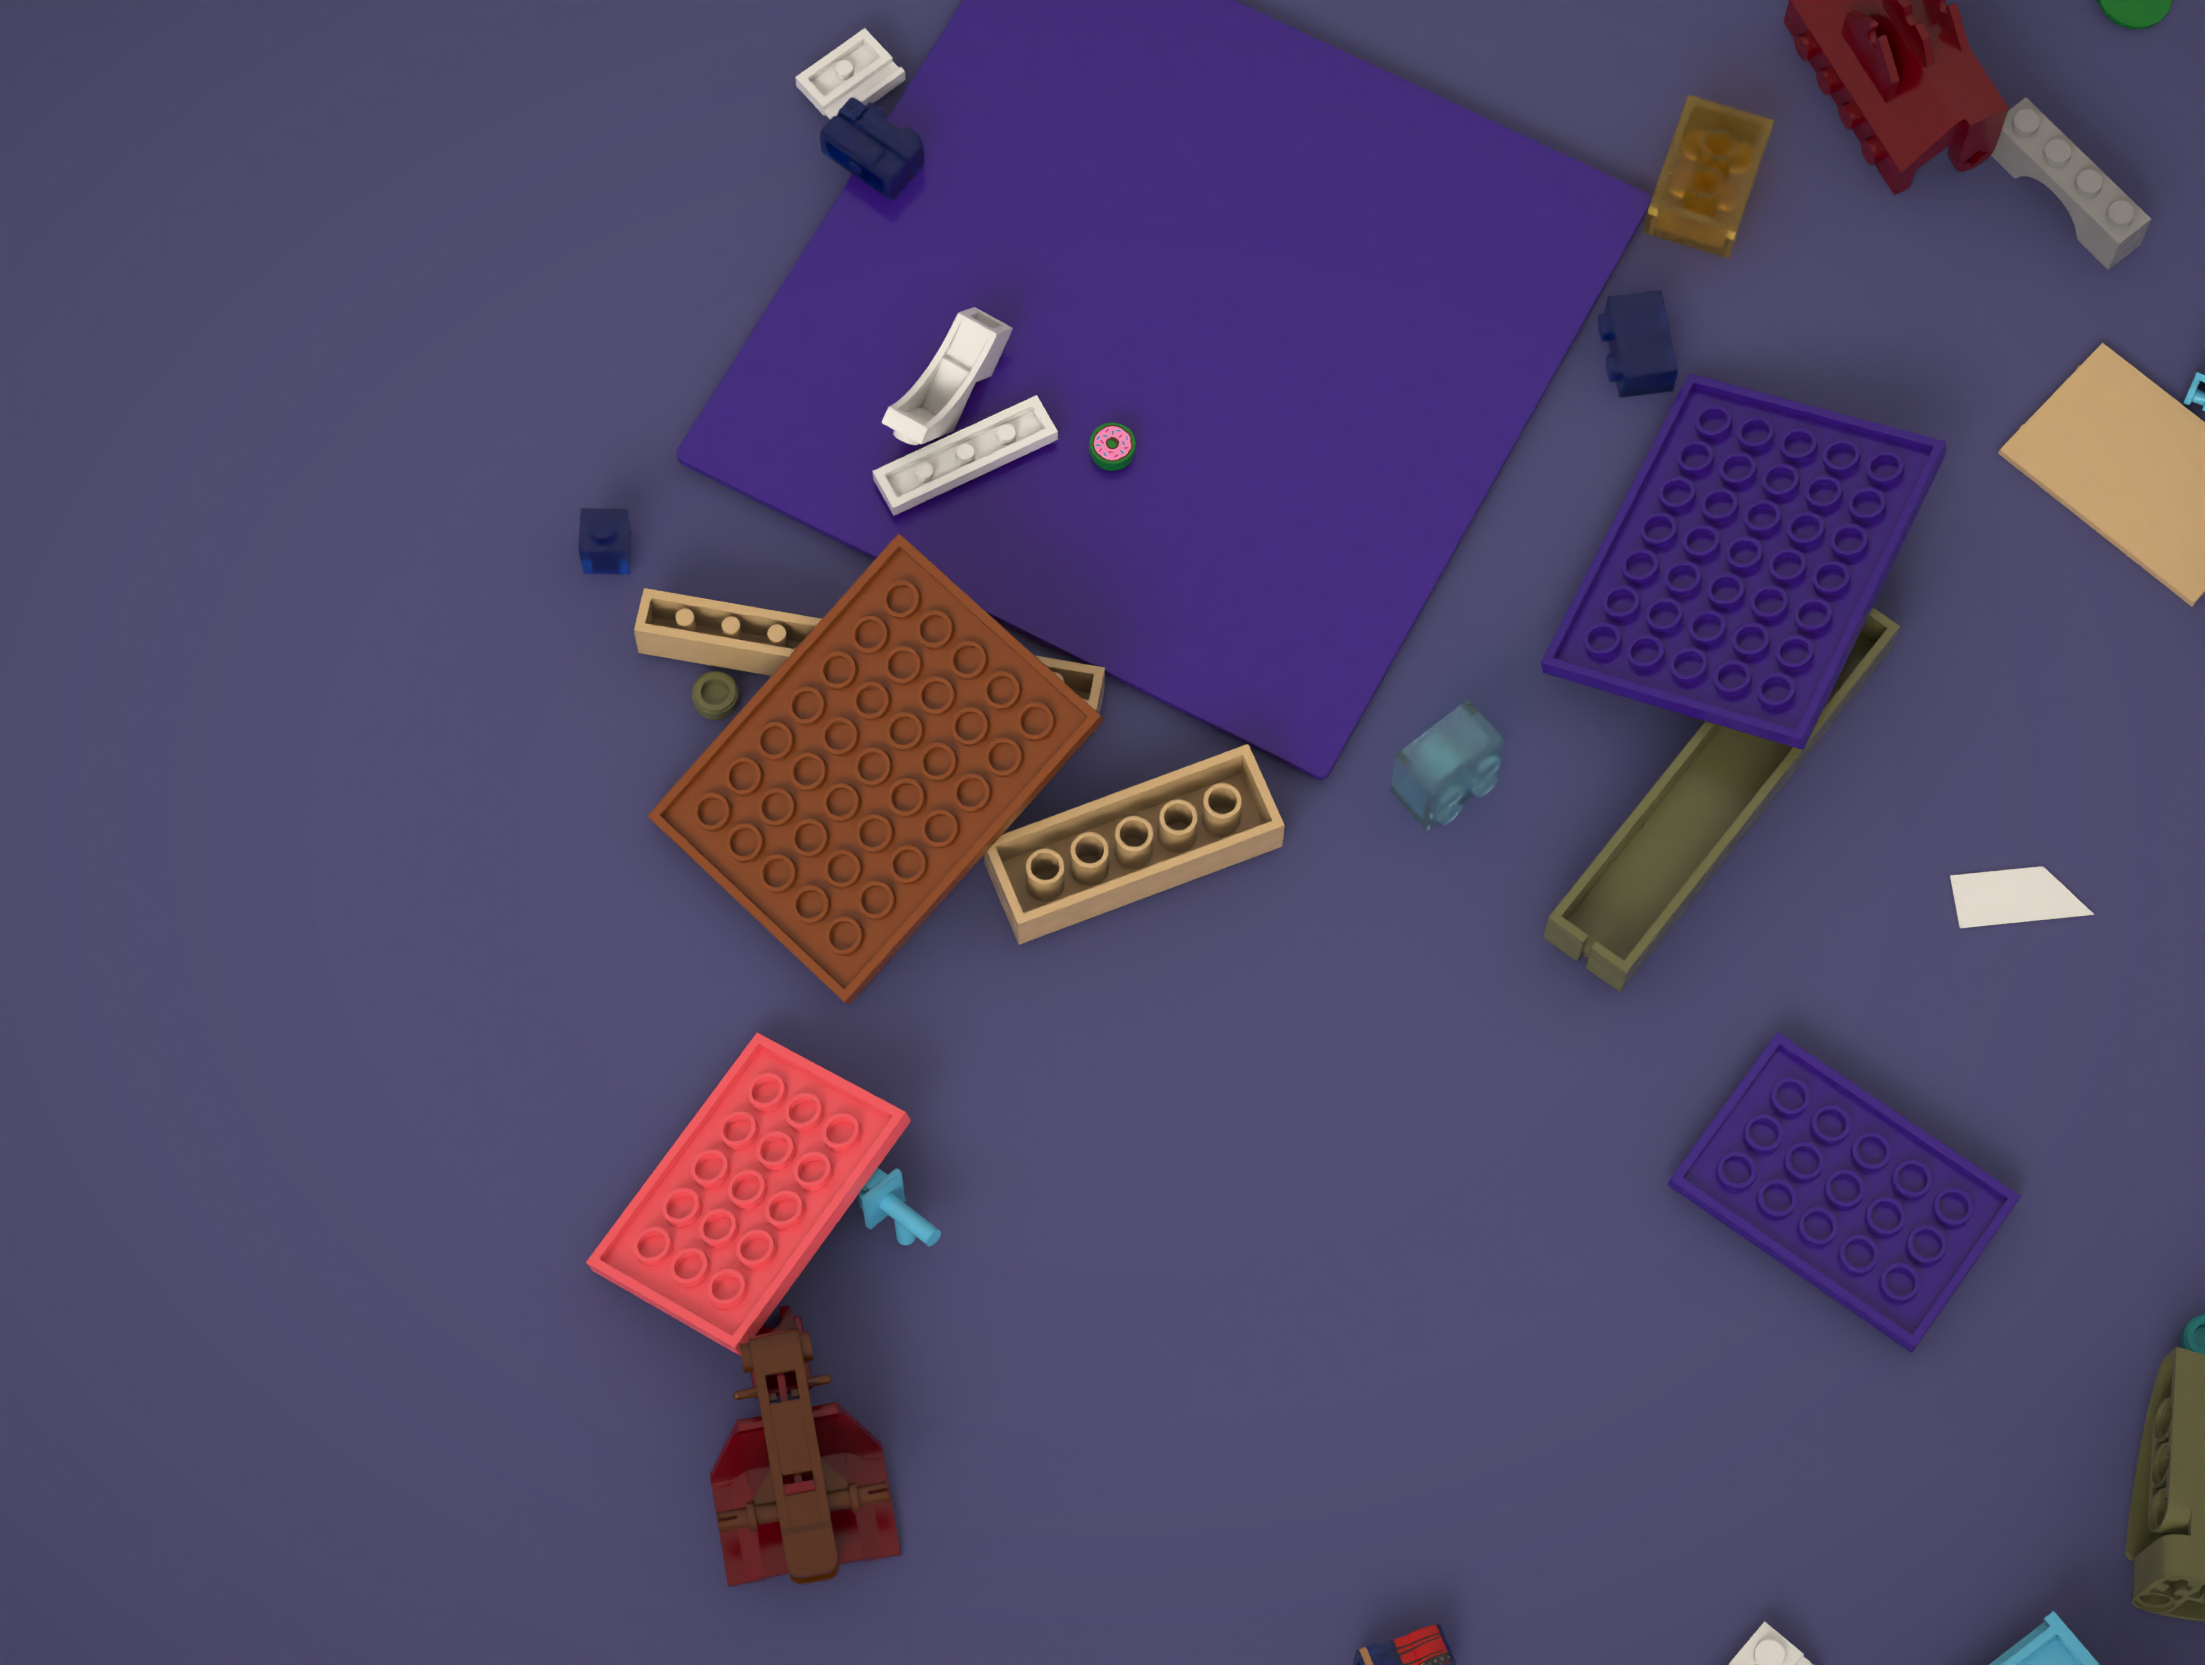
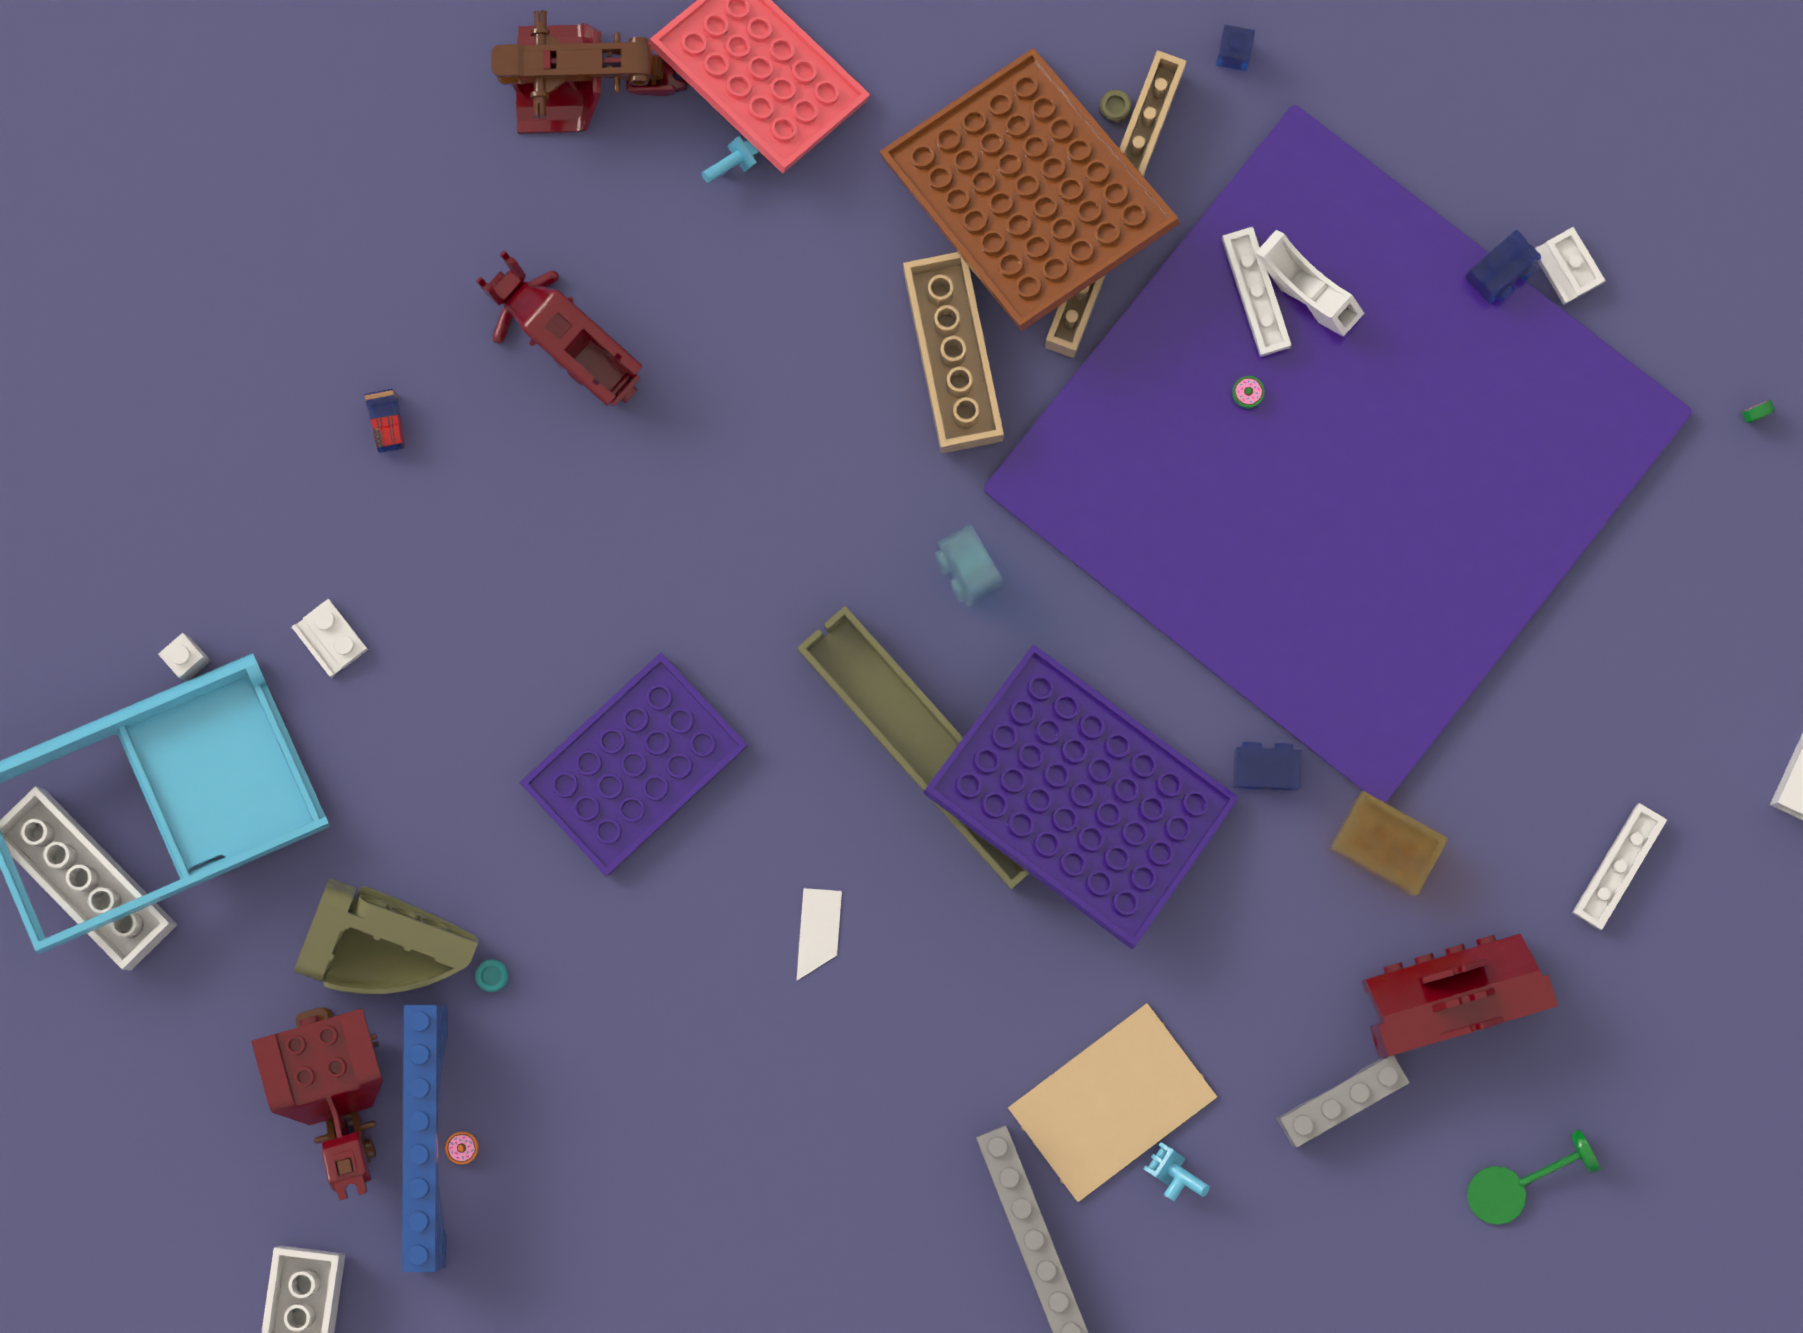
camera: 105 degrees right, 15 degrees up
(1217, 1400) = (562, 332): none -> dark red piece

